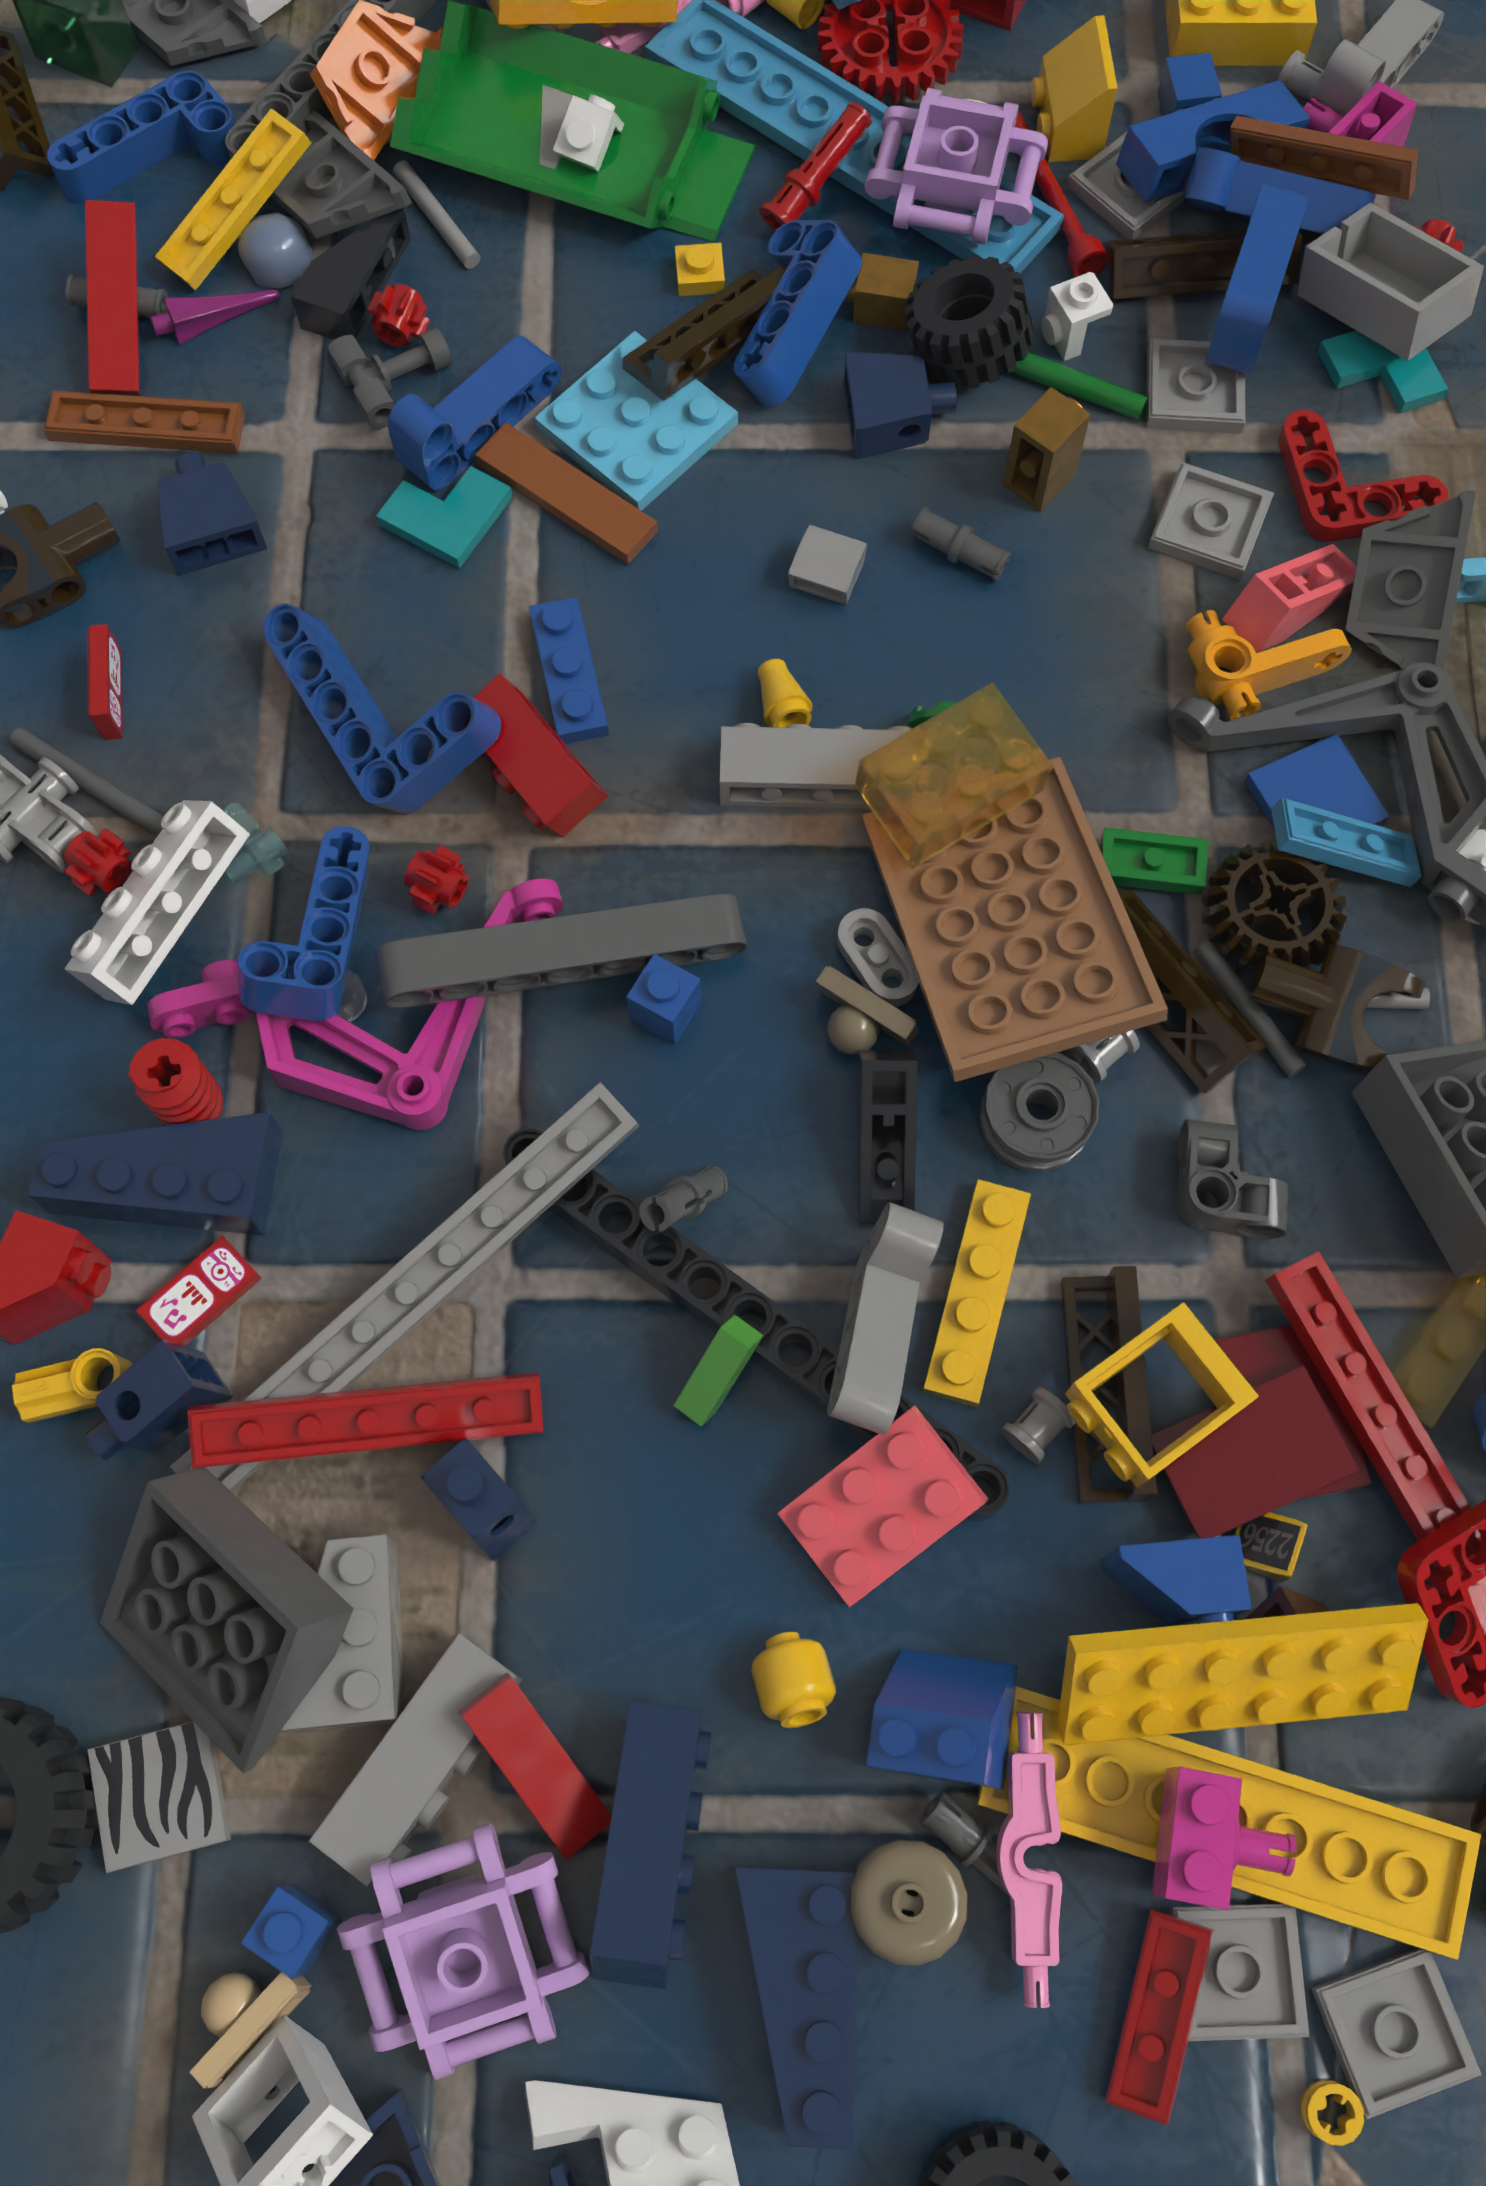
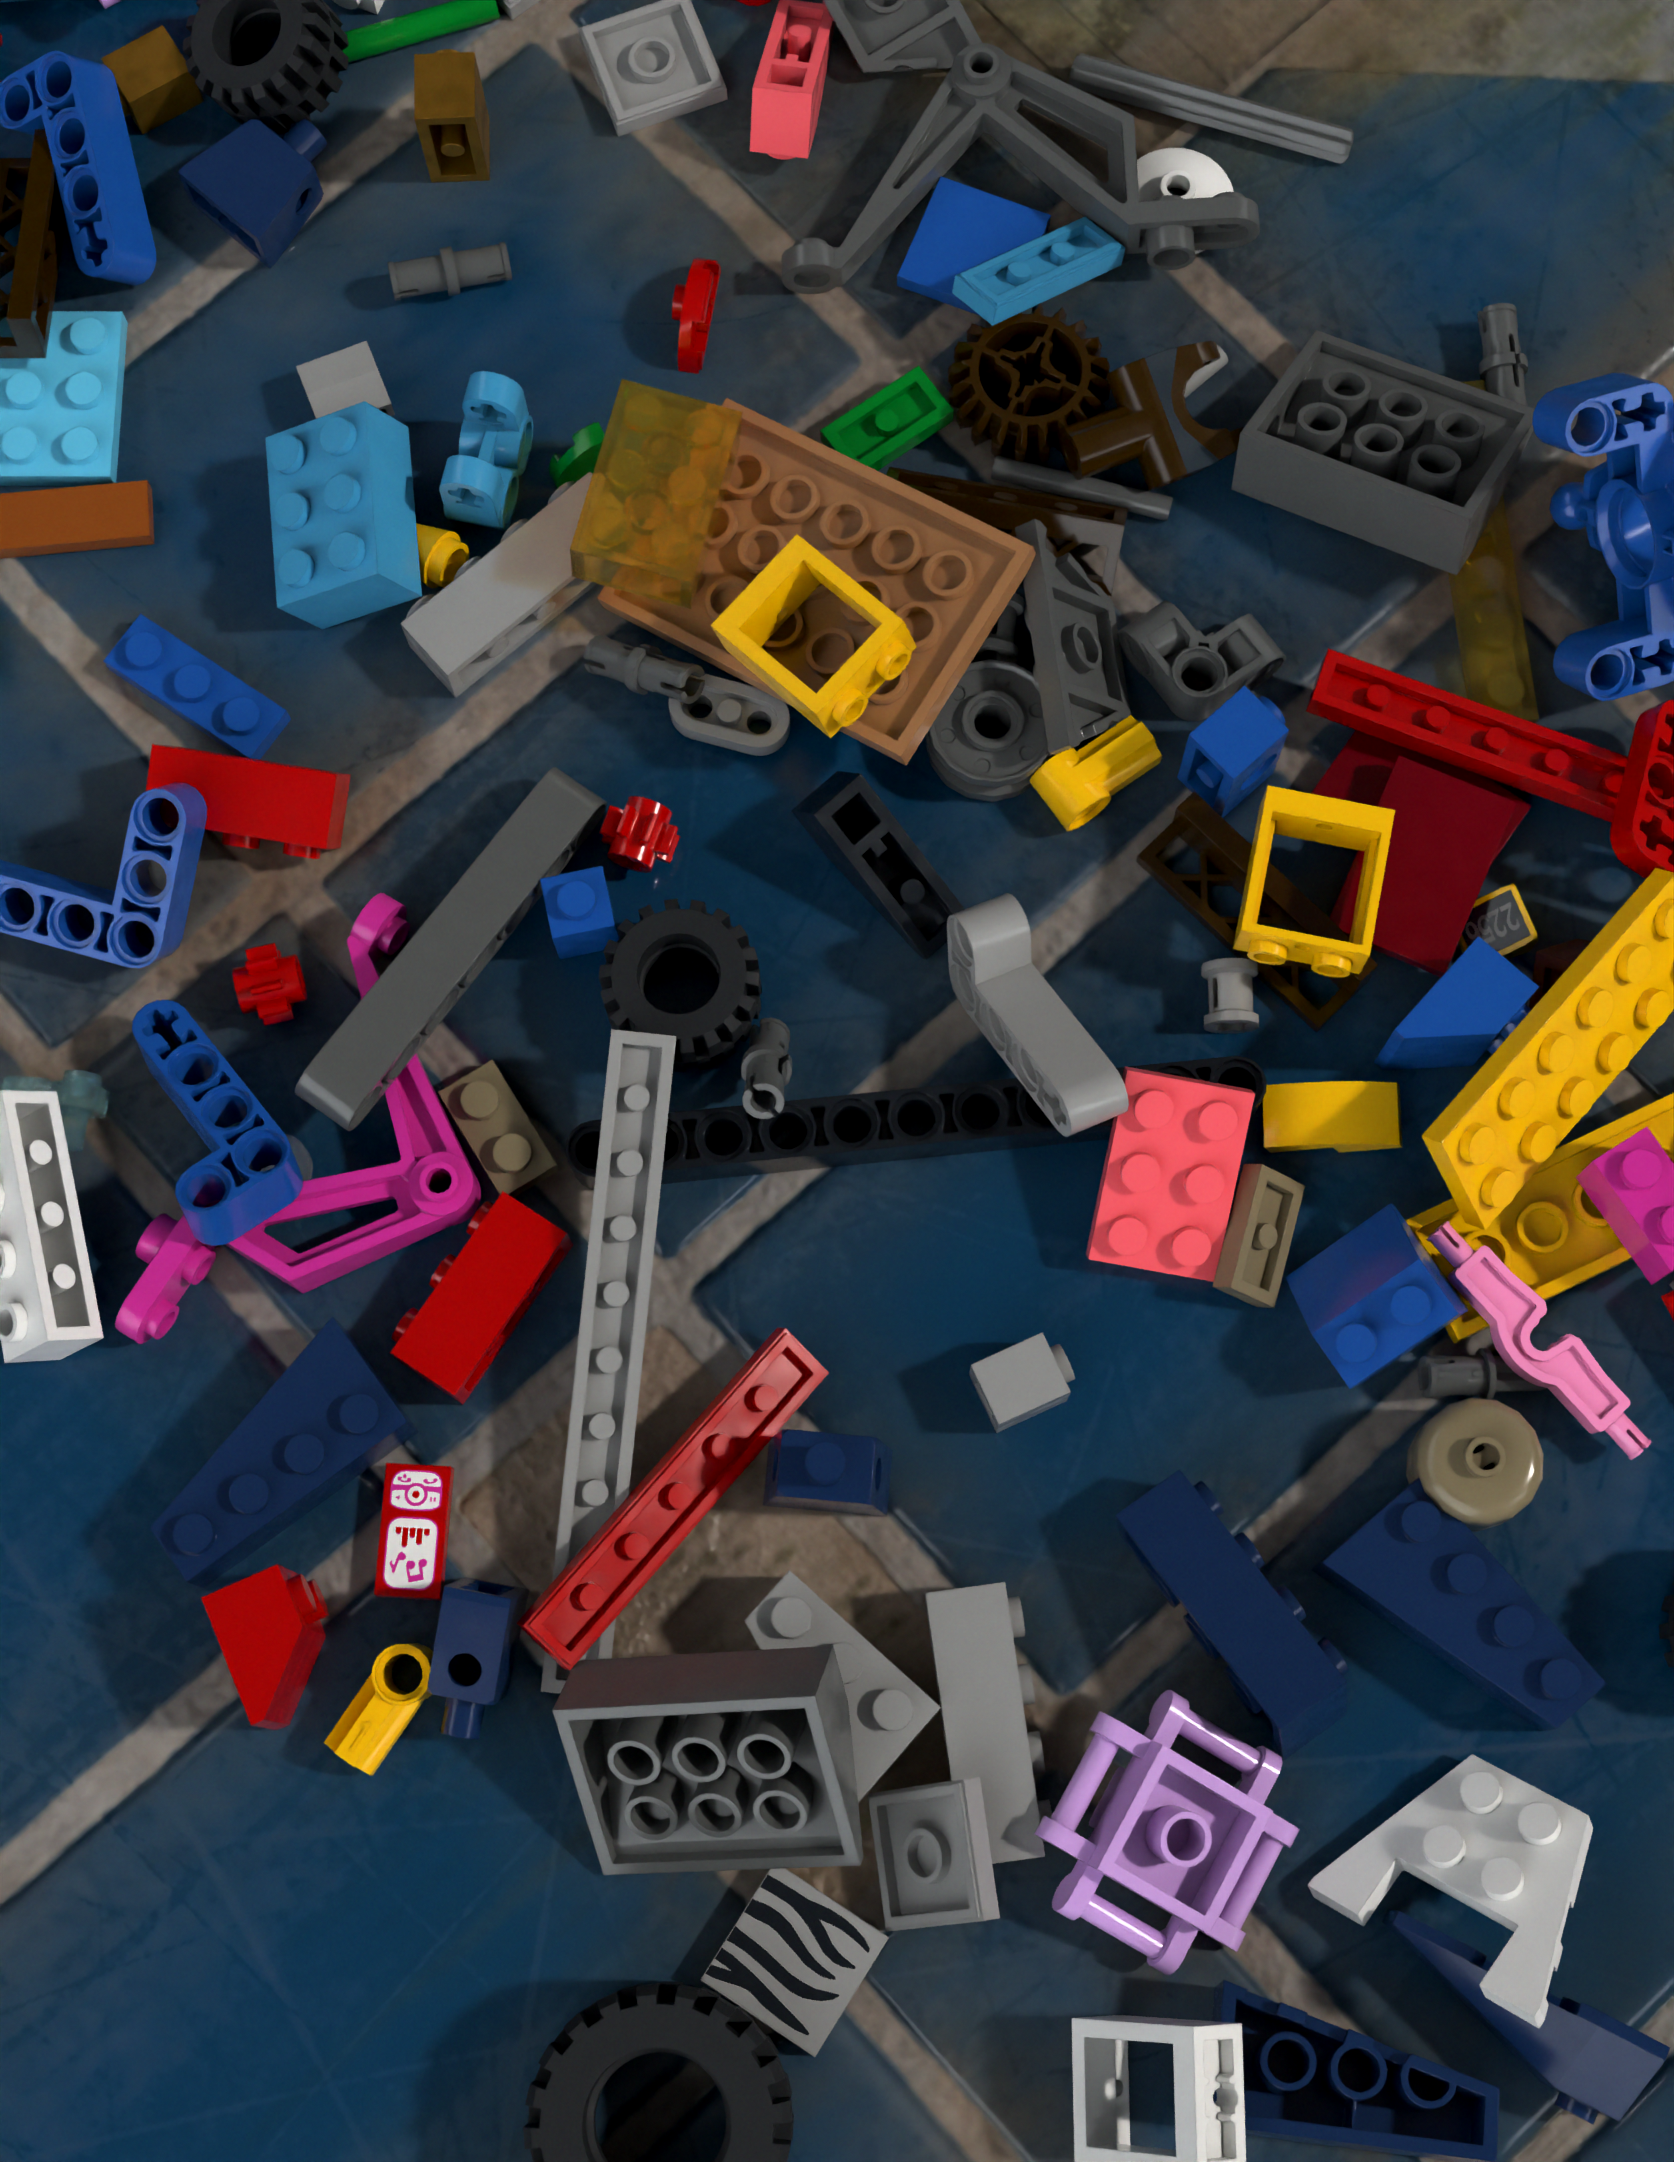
camera: 40 degrees left, 5 degrees up
(175, 1083) = (203, 1356): red piece -> none
(240, 2018) = (1032, 2054): tan tile -> none
(291, 1930) = (1015, 1951): blue brick -> none
(299, 1814) = (933, 1855): none -> light grey tile
(374, 1184) = (480, 1296): none -> red brick
(488, 1092) = (498, 1130): none -> dark tan plate
(536, 1765) = (1086, 1637): red tile -> none
(658, 1553) = (1022, 1381): none -> light grey brick
(684, 1057) = (683, 935): none -> black tyre
(718, 1370) = (932, 1186): bright green piece -> none
(748, 634) = (343, 516): none -> dark azure brick
(748, 982) = (639, 834): none -> red gear
(793, 1680) = (1225, 1379): yellow head -> none
(848, 882) = (644, 669): none -> dark grey pin
(861, 1015) = (764, 778): dark tan tile -> none
(884, 671) = (493, 452): none -> dark azure piece
(907, 1603) = (1258, 1235): none -> dark tan plate
(963, 902) = (775, 597): none -> yellow window
(976, 1293) = (1078, 931): yellow plate -> none
(1034, 1569) = (1332, 1115): none -> yellow slope
(1068, 1197) = (1082, 781): none -> yellow piece
(1092, 690) = (694, 308): none -> red plate
(1141, 1101) = (1073, 646): none -> dark grey wing
(1188, 1262) = (1233, 750): none -> blue brick
(1252, 671) = (818, 178): light orange piece -> none

